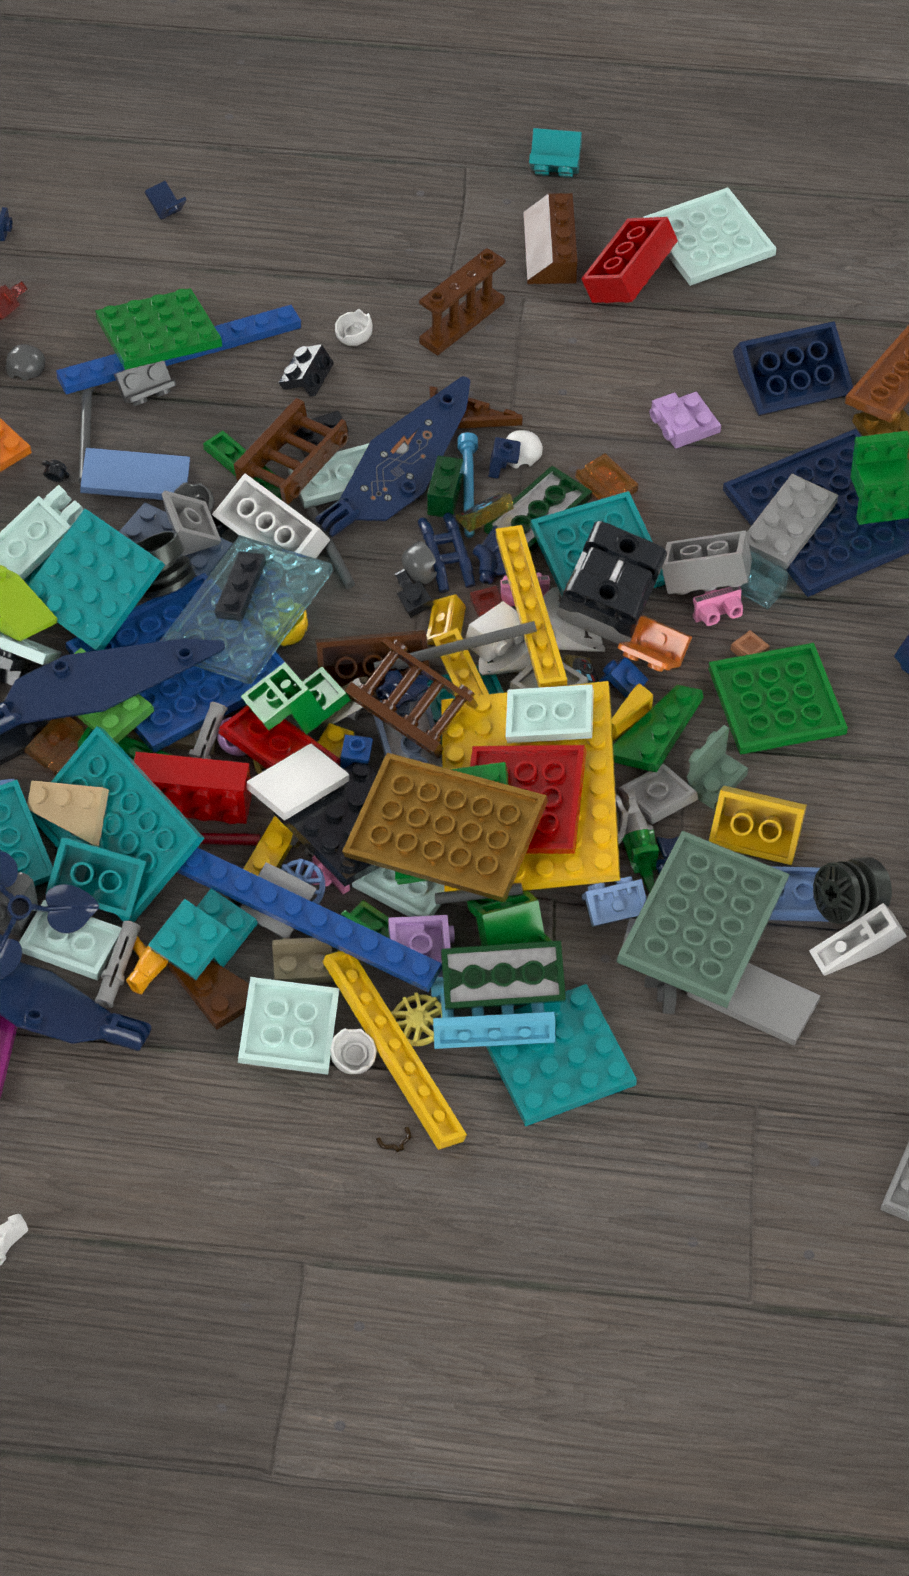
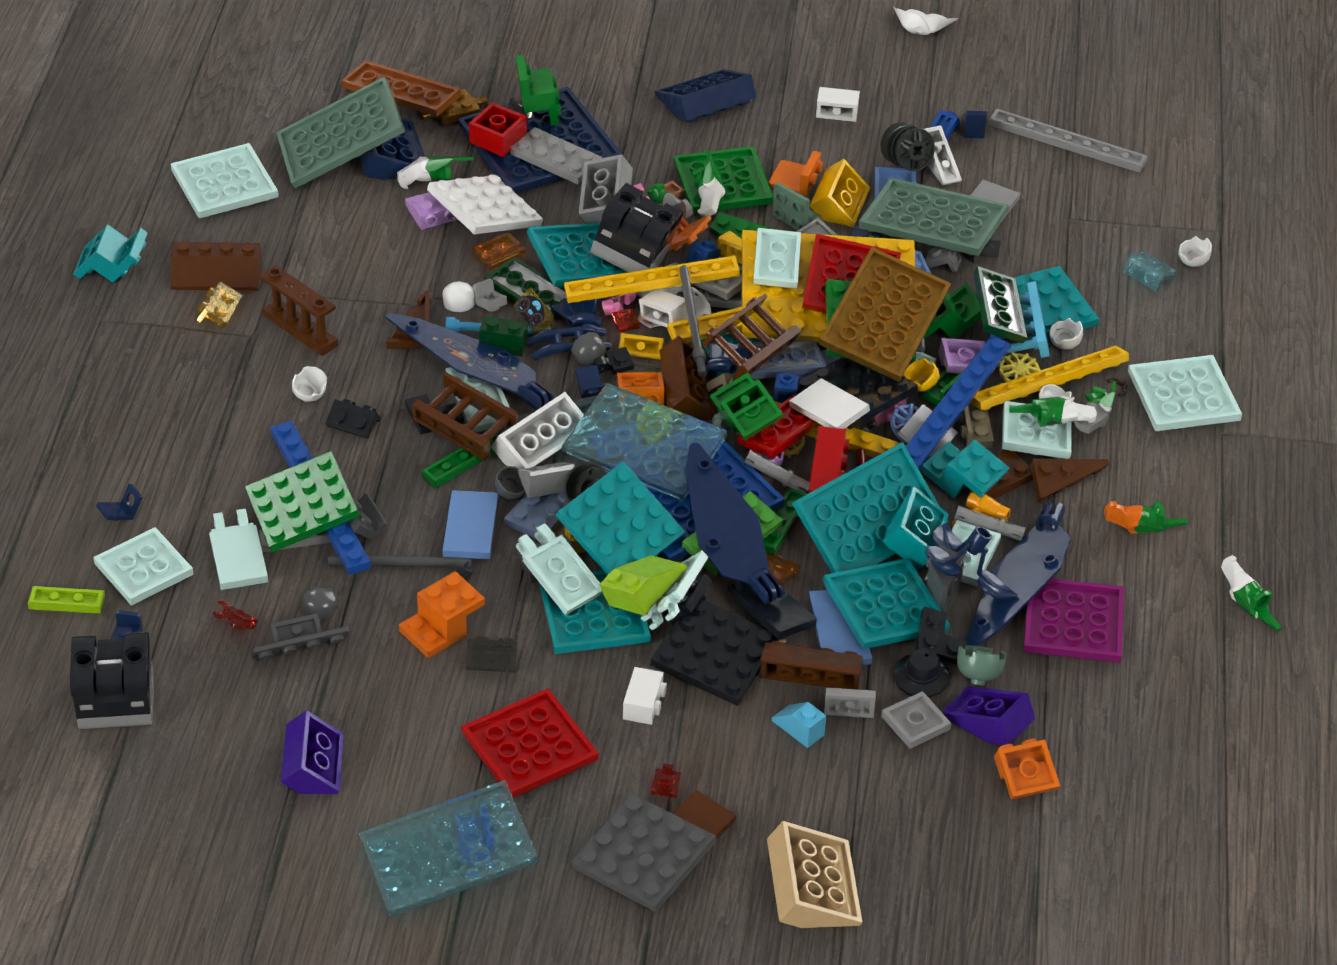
camera: 90 degrees left, 10 degrees down
(44, 182) = (66, 599): none -> lime tile
(70, 807) = (854, 538): tan wing -> none
(83, 228) = (143, 566): none -> light aqua plate
(83, 297) = (237, 552): none -> light aqua tile
(124, 1139) = (1140, 518): none -> animal
(210, 1048) = (1056, 474): none -> reddish brown wing
(240, 586) = (627, 437): black plate -> none
(302, 1040) = (1057, 410): none -> animal
(331, 1101) = (1103, 404): none -> animal
(358, 612) = (644, 384): none -> orange plate
(369, 571) = (589, 381): none -> dark blue bracket
(371, 890) = (923, 374): none -> yellow hair
(374, 1215) = (1184, 393): none -> light aqua plate
(479, 240) = (220, 304): none -> clear yellow bracket
(483, 1074) = (1068, 336): none -> white hair
(503, 452) = (473, 302): dark blue bracket -> none
(517, 475) = (487, 297): none -> light grey bracket
(629, 260) = (259, 215): red brick -> none
(641, 1194) = (1148, 269): none -> clear light blue bracket
(679, 1255) = (1195, 252): none -> white hair
(680, 457) = (484, 204): none -> white plate
(717, 638) = (661, 196): none -> animal
(740, 670) = (709, 187): none -> animal
(749, 406) = (428, 169): none -> animal
(785, 311) = (340, 132): none -> sand green plate
(795, 776) = (798, 176): none -> orange bracket
(815, 453) = (497, 129): none -> red brick

